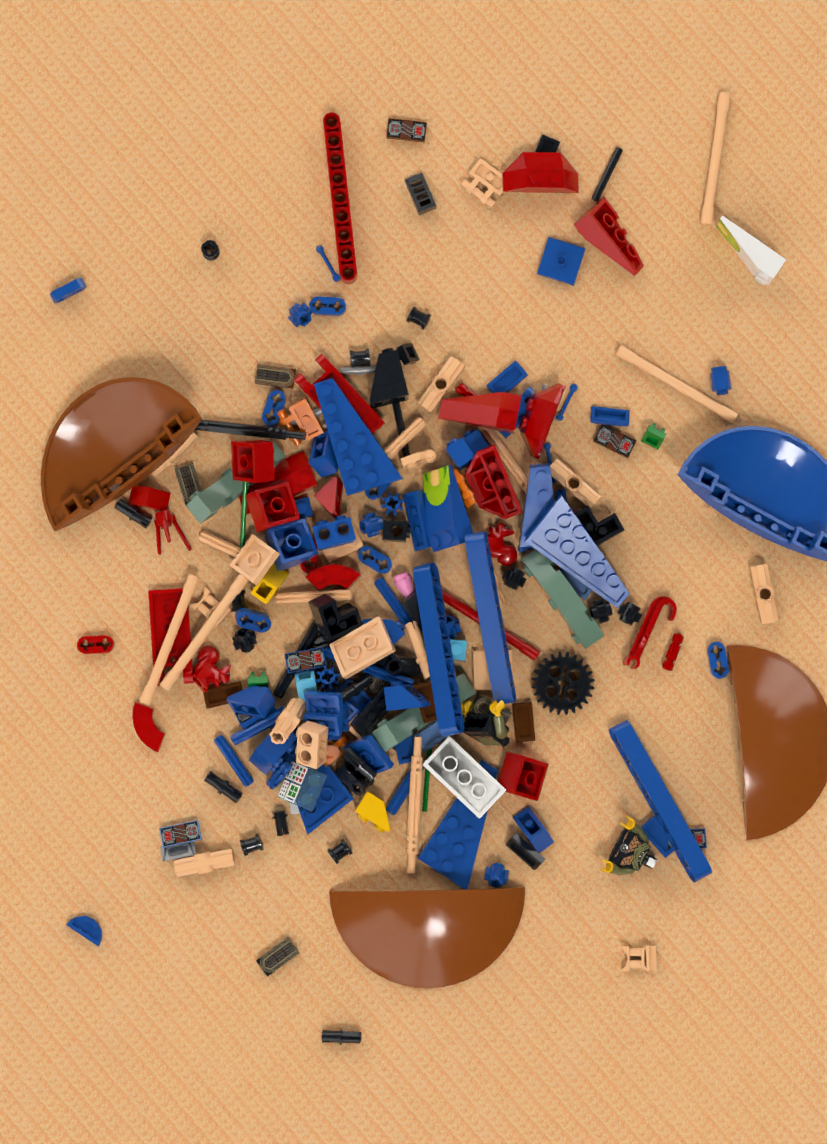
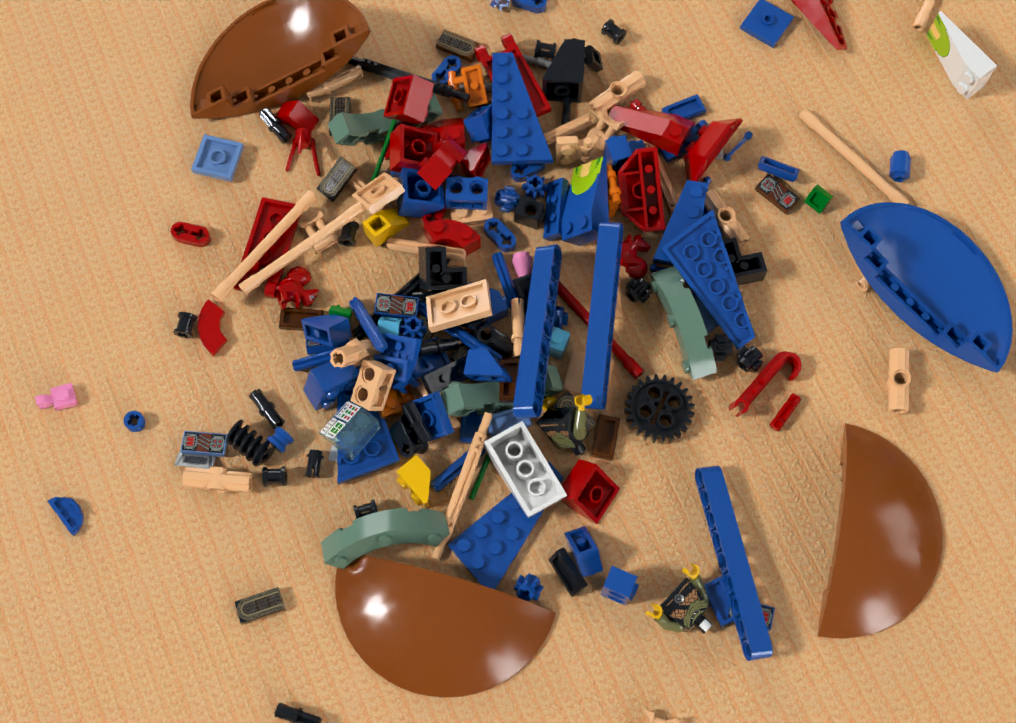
camera: 15 degrees right, 15 degrees down
(40, 830) = (60, 398): none -> bright pink plate
(92, 563) = (217, 158): none -> medium blue plate
(118, 832) = (141, 422): none -> blue bush
(124, 732) = (185, 325): none -> black bush
(210, 551) = (337, 179): none -> tile
(220, 824) = (248, 445): none -> black piece
(233, 760) = (287, 386): blue axle -> none
(244, 640) = (341, 270): black gear -> none
(245, 811) = (280, 439): none -> blue wheel
(252, 621) = (360, 249): blue beam -> none
(279, 774) = (329, 411): blue axle -> none
(287, 687) = (368, 324): none -> blue axle
(301, 523) = (441, 162): none -> red brick
(362, 868) = (383, 530): none -> sand green brick
(438, 432) = (599, 134): none -> light nougat piece
(572, 852) = (620, 586): none -> blue brick
(713, 661) = (826, 434): blue beam -> none

